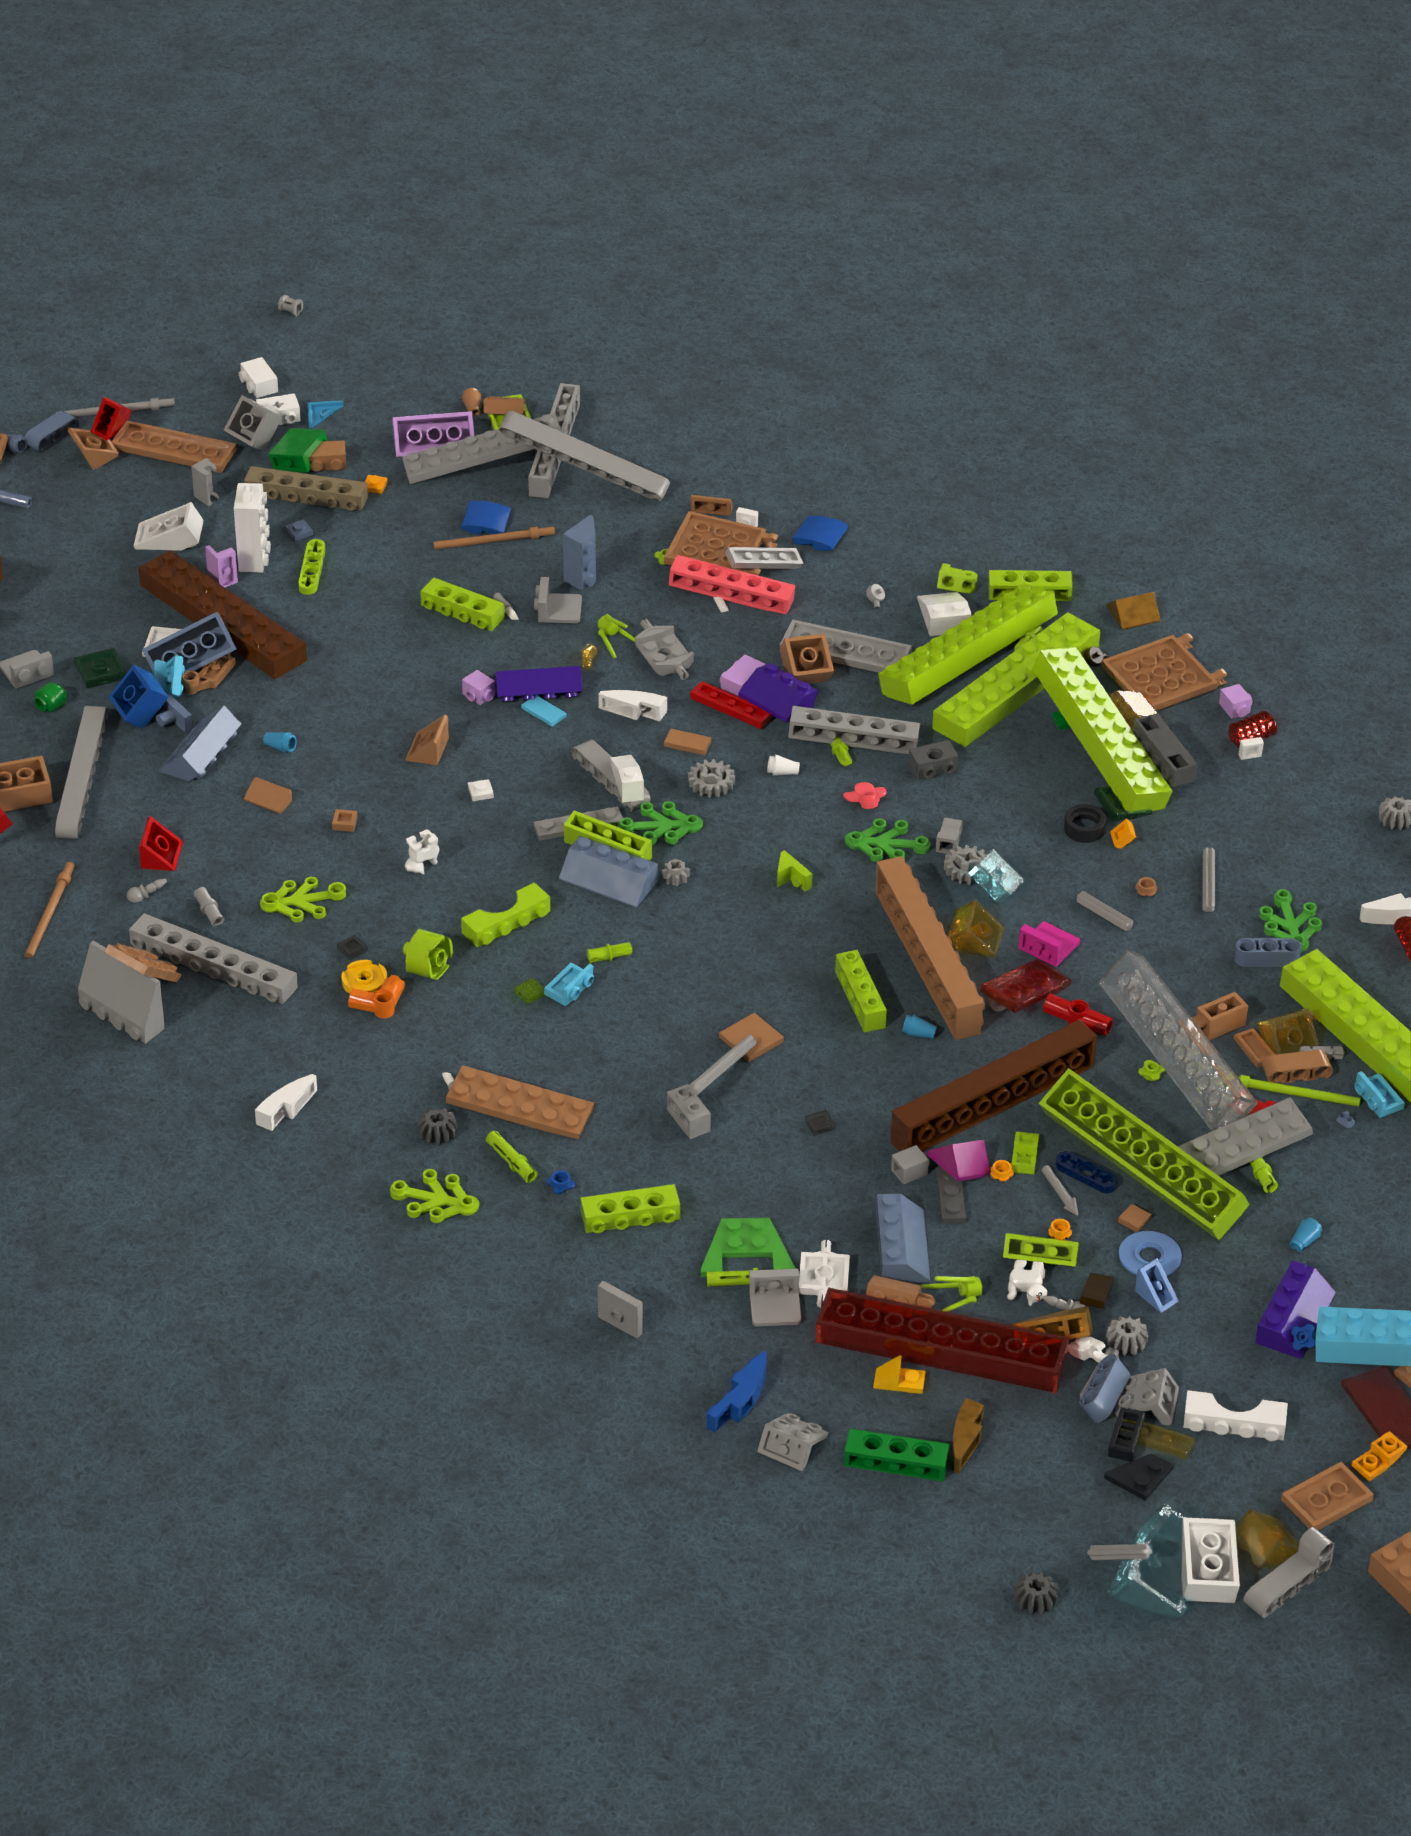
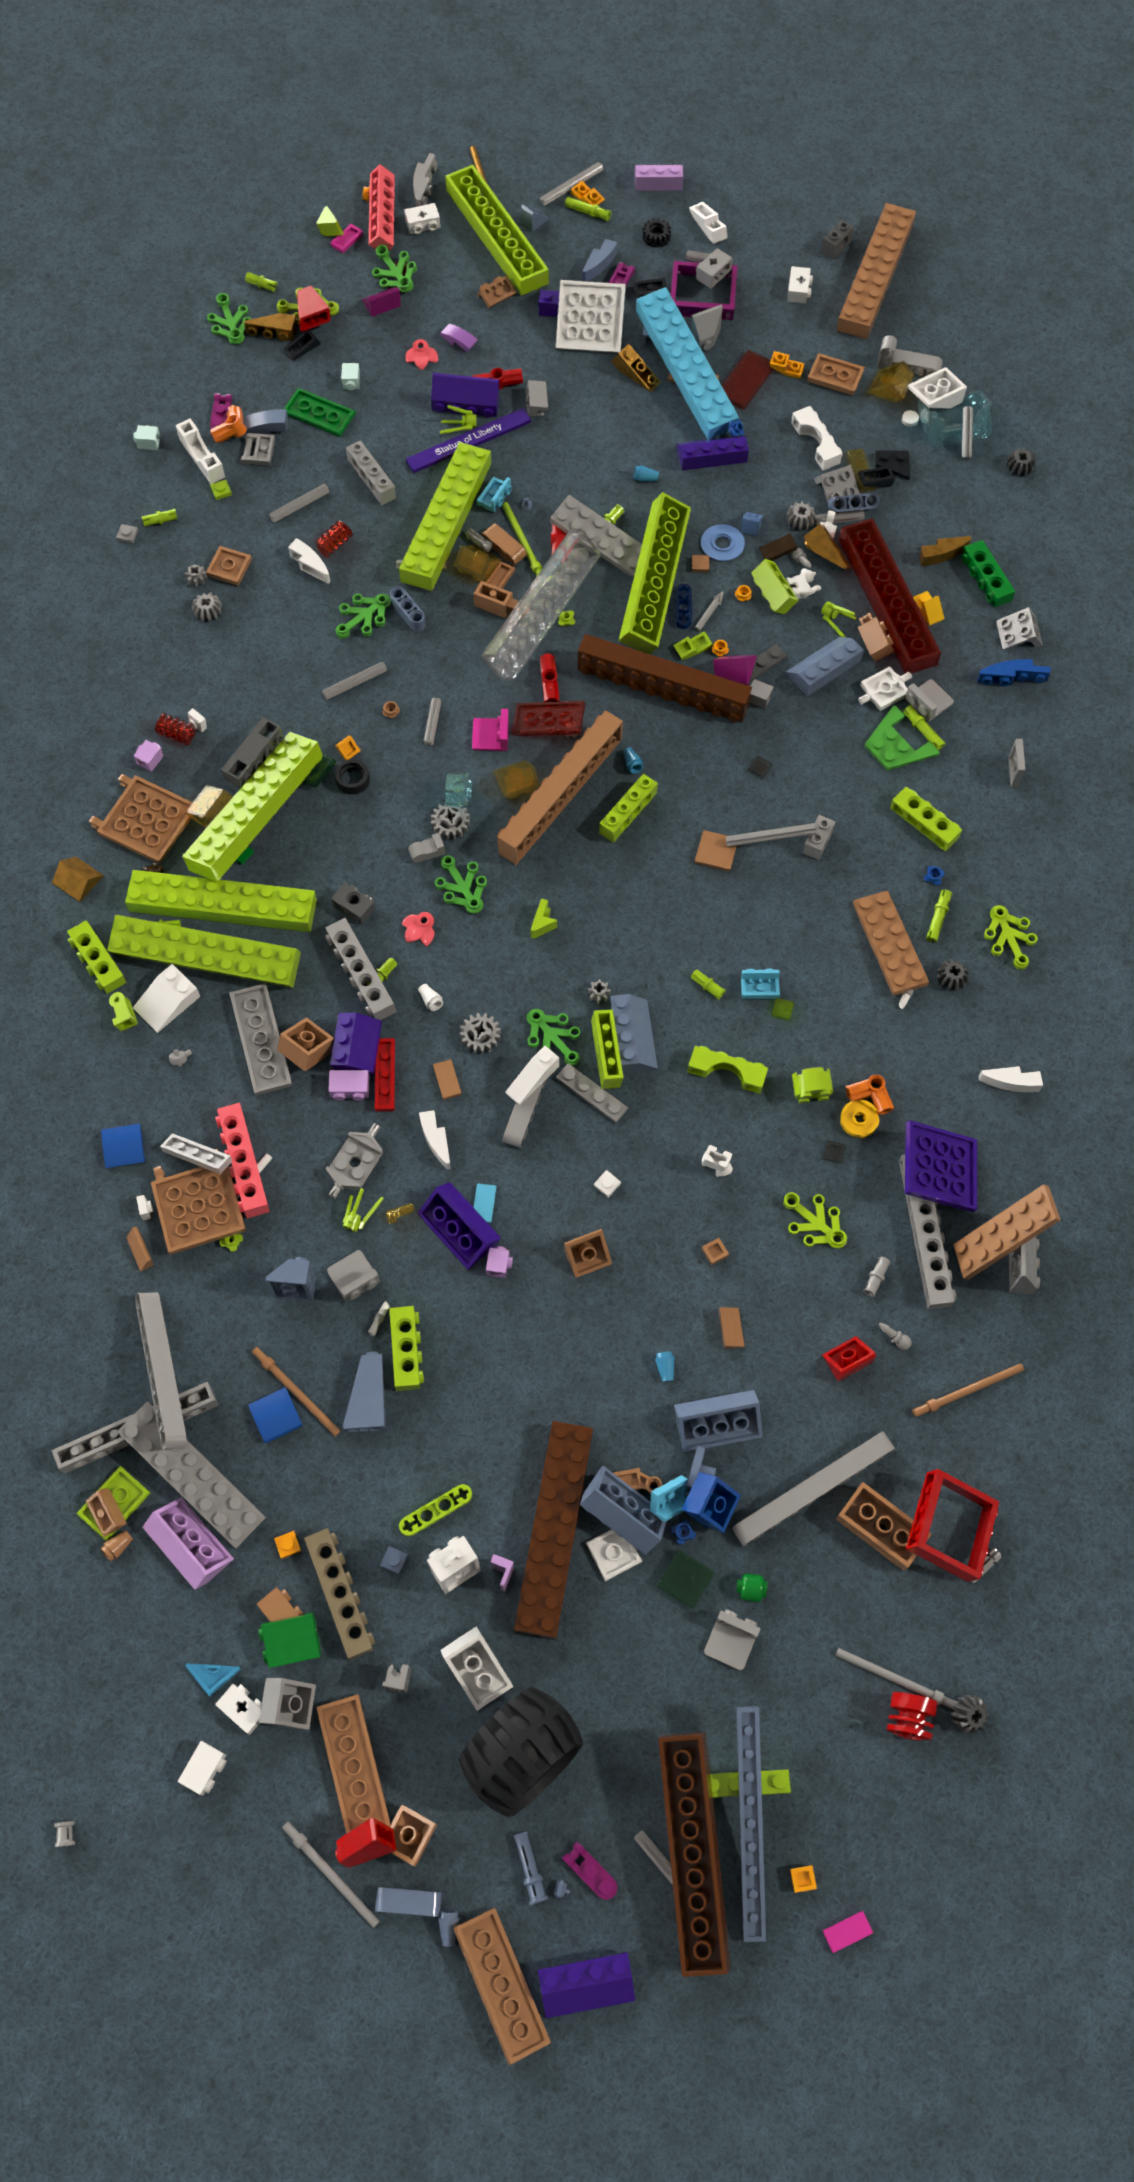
camera: 125 degrees left, 25 degrees up
(76, 490) = (520, 1751): none -> black tyre
(256, 989) = (941, 1166): none -> dark purple plate
(438, 561) = (367, 1398): none -> sand blue slope

